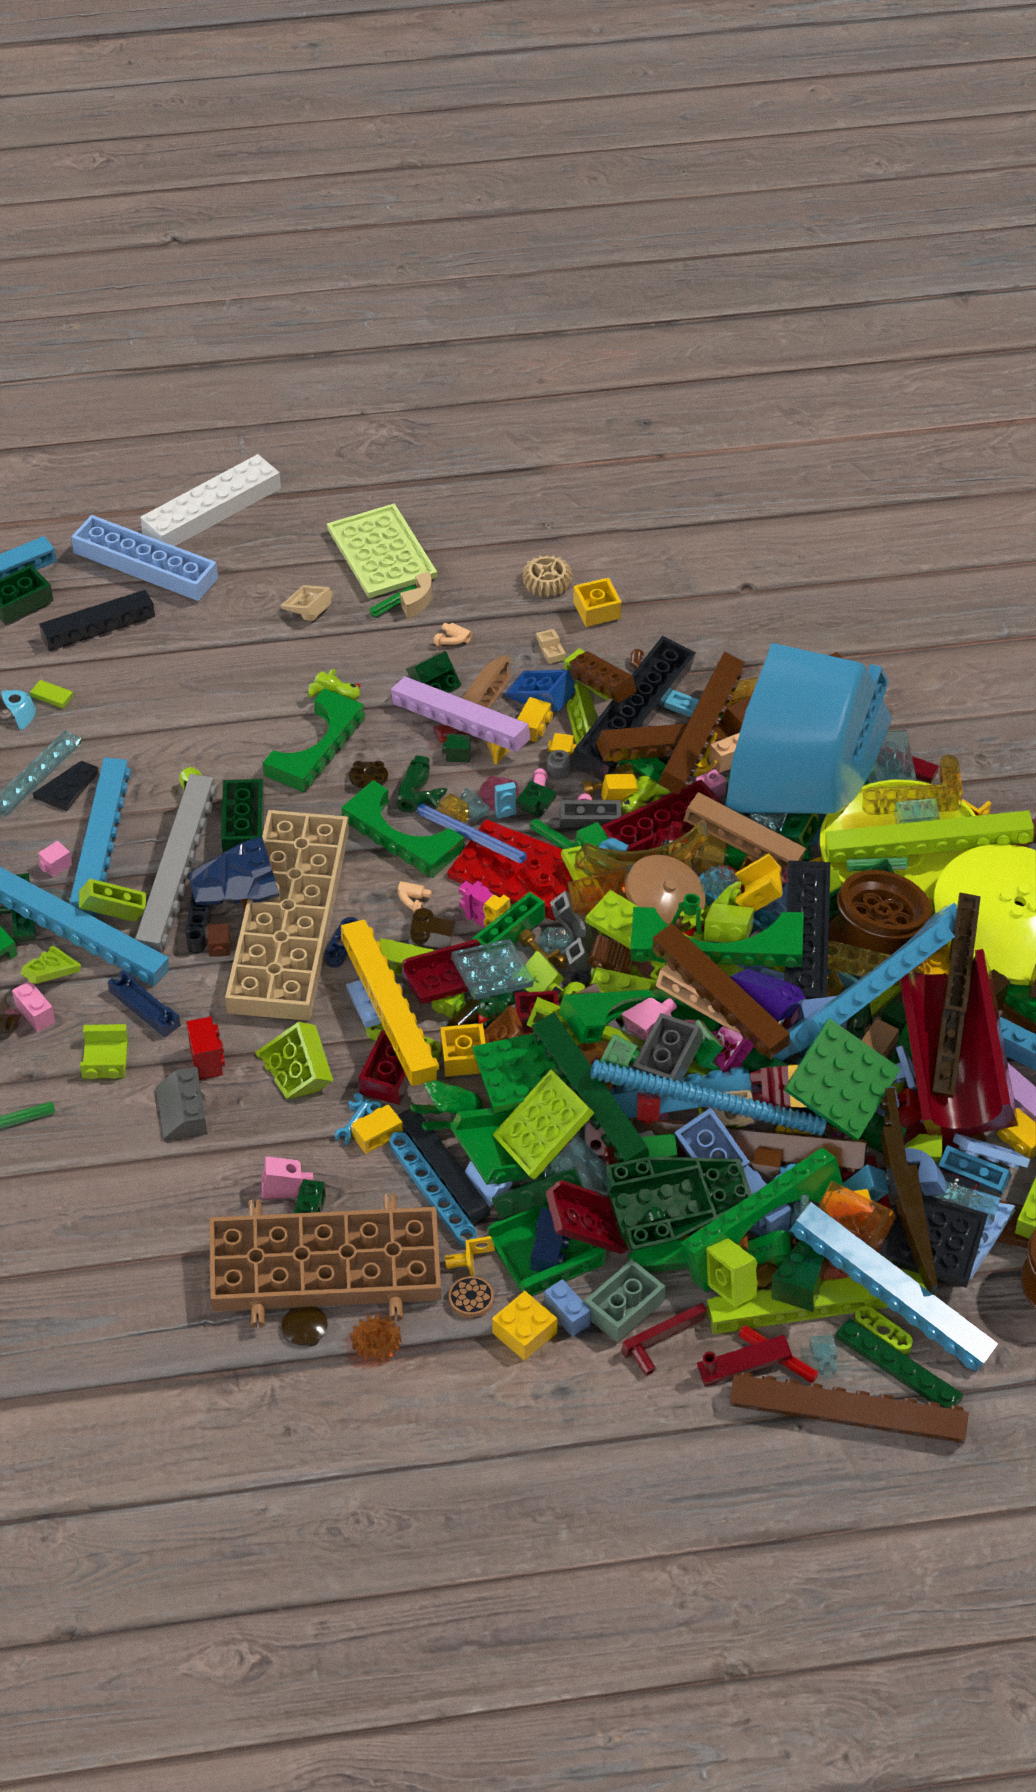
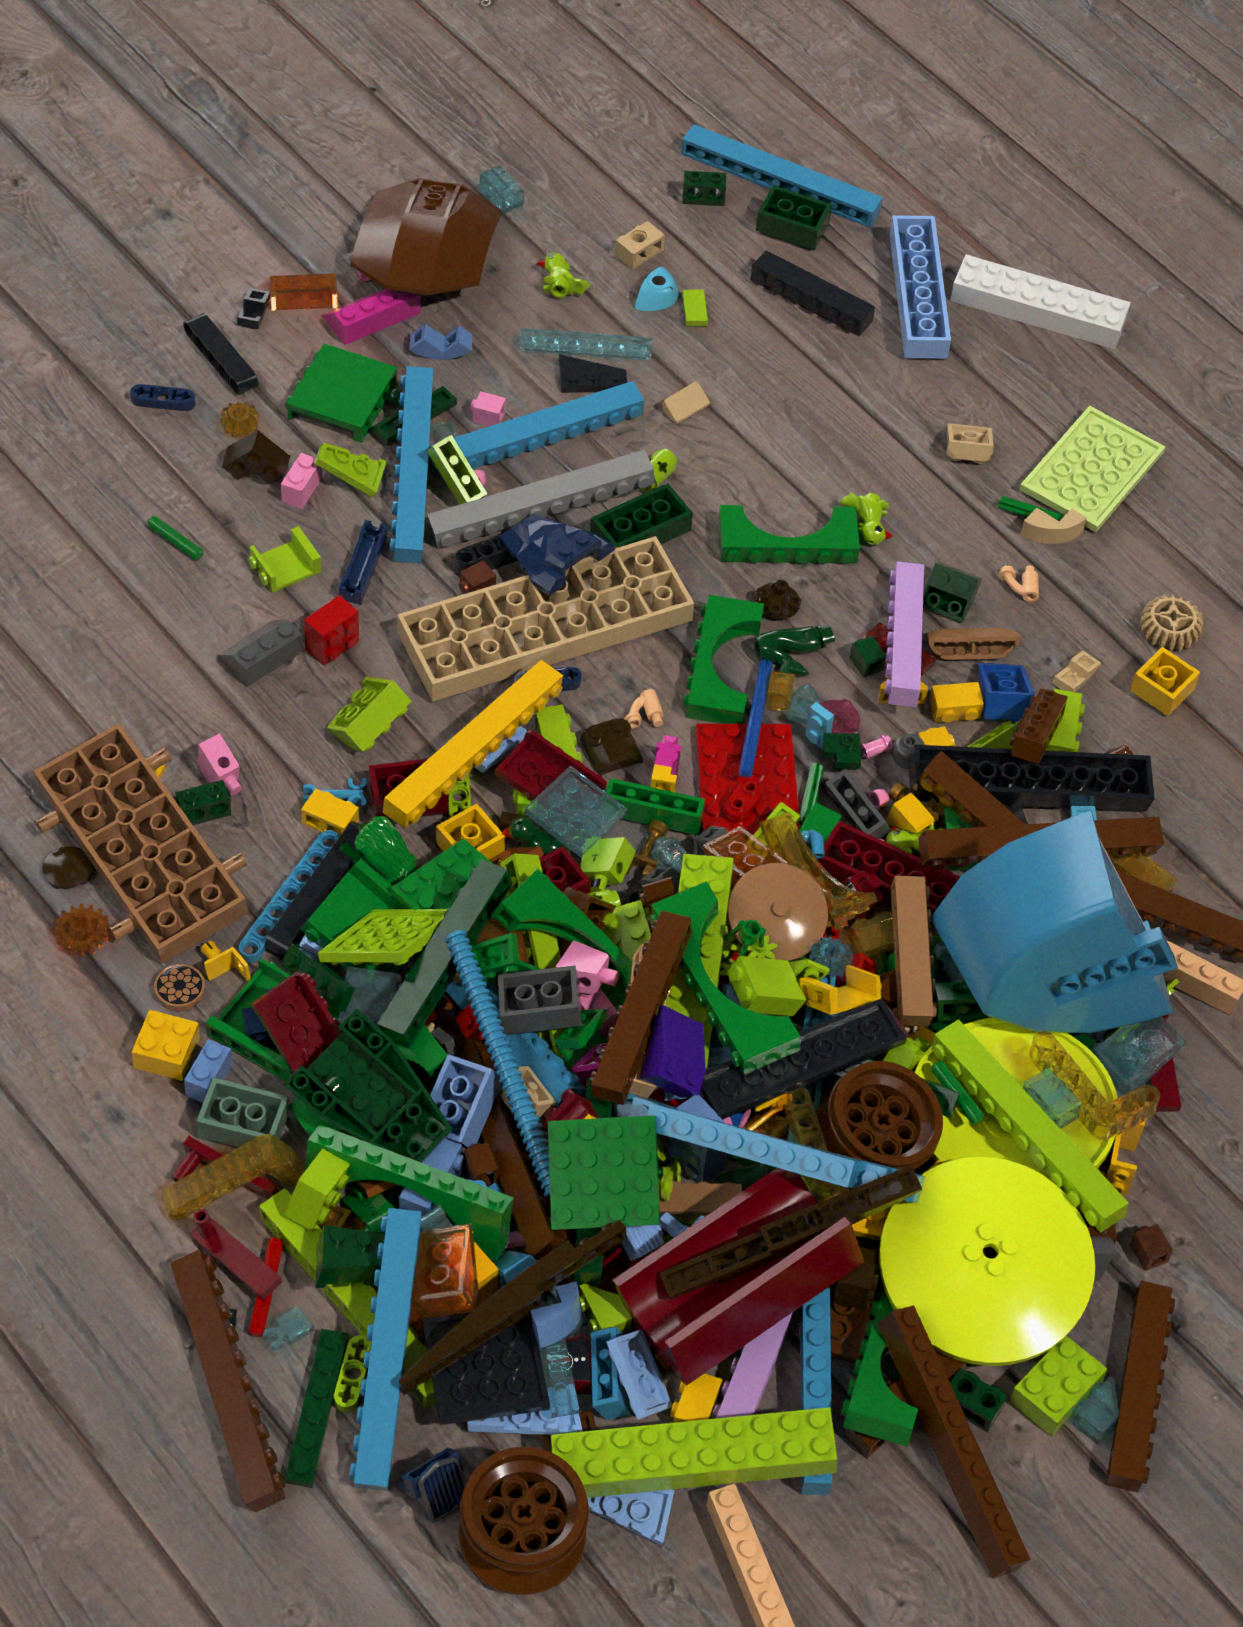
camera: 55 degrees right, 5 degrees up
(142, 742) = (685, 403): none -> tan slope
(677, 1332) = (232, 1171): none -> clear yellow beam
(1005, 1312) = (436, 1484): none -> dark blue piece

